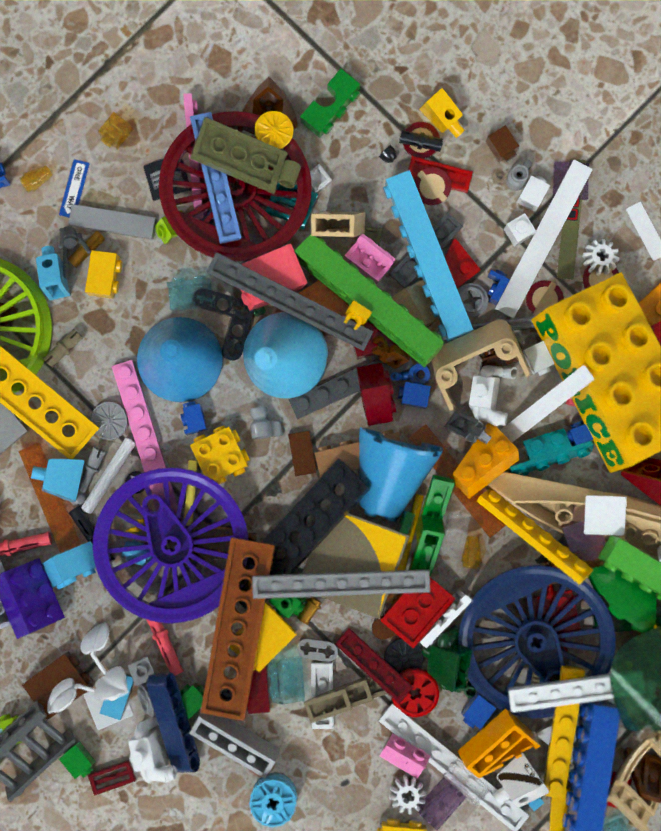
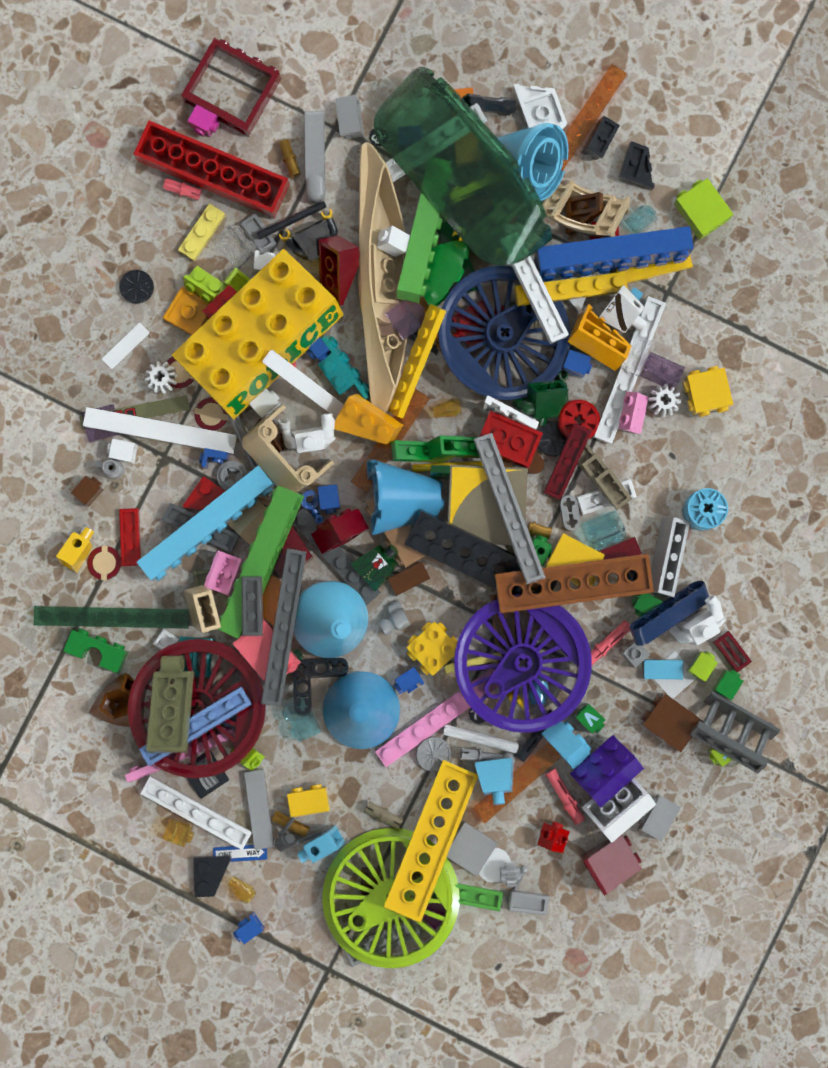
camera: 110 degrees left, 0 degrees up
(63, 150) = (209, 874): none -> black wing
(90, 599) = (590, 719): none -> green brick
(106, 740) = (702, 665): none -> lime brick
(107, 687) = (658, 676): white plant -> none
(129, 156) = (196, 812): none -> white plate
(144, 699) = (658, 643): light grey gear -> none
(274, 129) = (136, 690): yellow wheel -> none
(323, 275) = (252, 606): none -> dark grey tile
(326, 422) = (376, 565): none -> dark green torso
(358, 313) = (275, 566): yellow tile -> none
(360, 129) = (111, 617): none -> clear green plate
(388, 154) = (126, 586): black hinge -> none
(392, 355) = (302, 528): reddish brown plate -> none
(421, 140) = (105, 561): black pin -> none
(433, 185) = (142, 539): sticker -> none
(467, 427) = (343, 444): dark grey hinge -> none
(519, 230) = (158, 453): white brick -> none
(605, 515) = (382, 307): white sticker -> none

